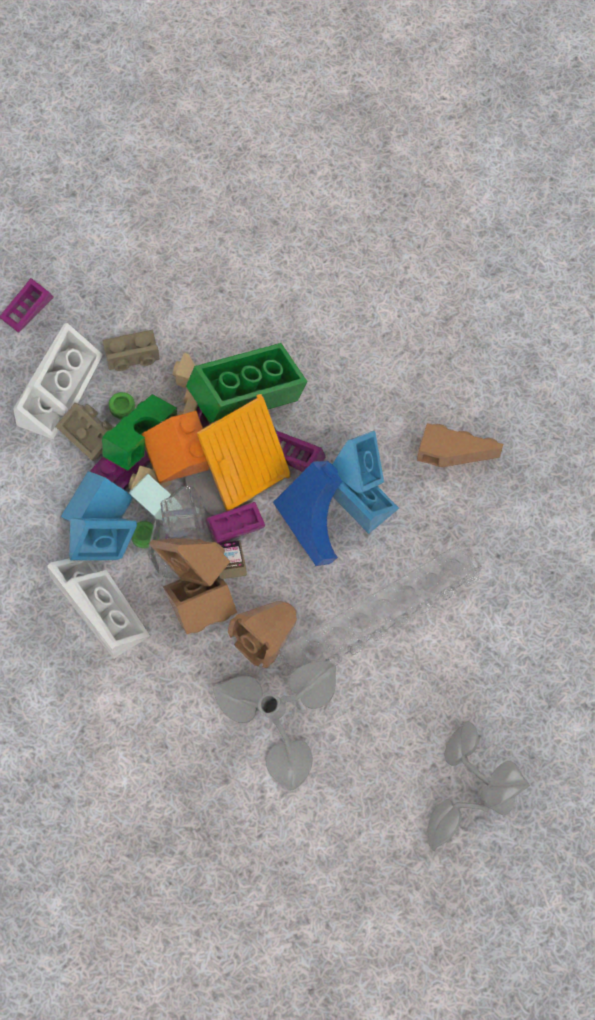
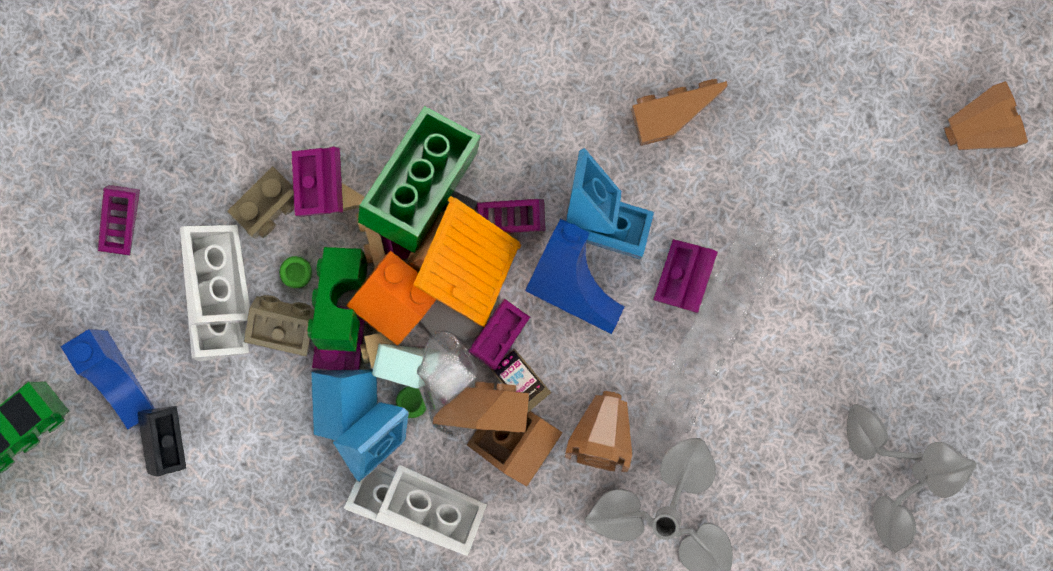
camera: 30 degrees left, 20 degrees up
(175, 349) = (317, 181): none -> magenta plate
(394, 558) = (685, 275): none -> magenta plate

